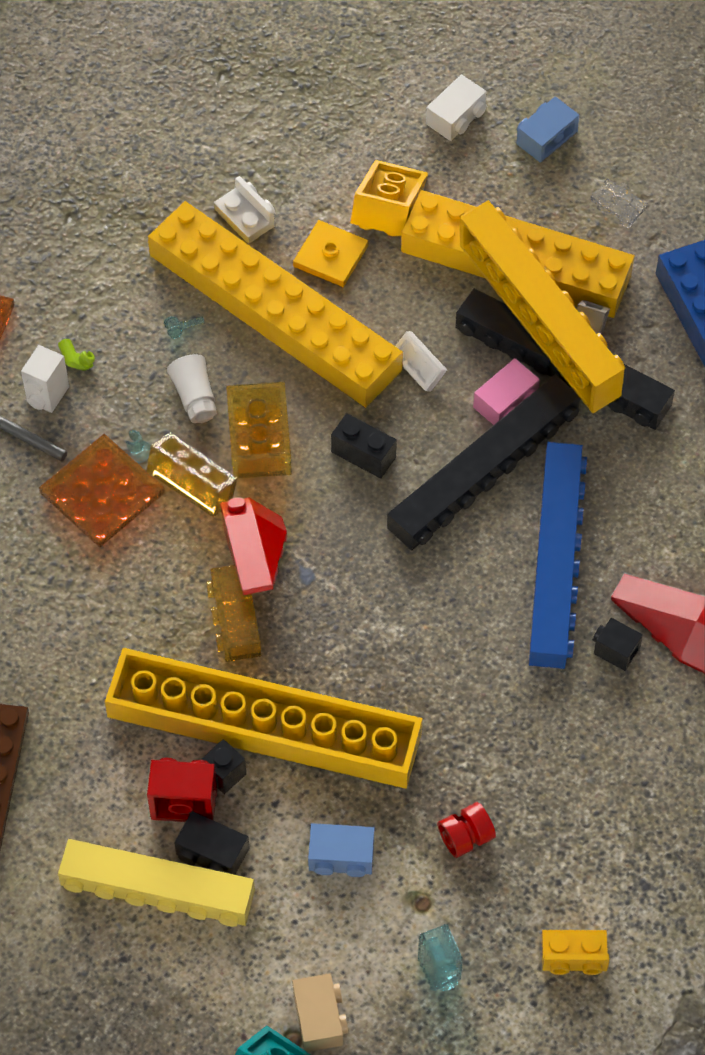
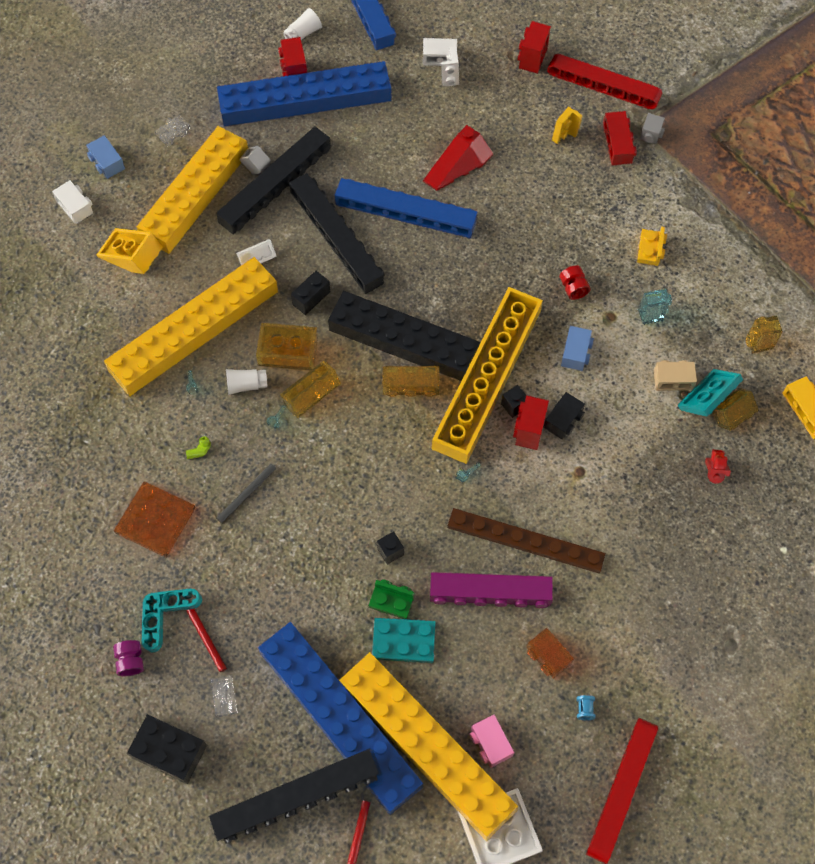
camera: 80 degrees left, 5 degrees up
(45, 379) = (219, 464): white brick -> none
(86, 716) = (463, 475): none -> clear light blue hand
(102, 490) = (306, 445): clear orange plate -> none
(156, 882) = (582, 450): light yellow brick -> none
(246, 211) = (114, 332): white bracket -> none
(254, 541) = (372, 359): wedge -> none
(313, 582) = (402, 335): none -> black brick
(330, 253) = (160, 291): yellow plate -> none
(505, 391) = (291, 212): bright pink brick -> none
(542, 306) = (249, 171): yellow brick -> none
(617, 643) = (470, 189): black brick -> none

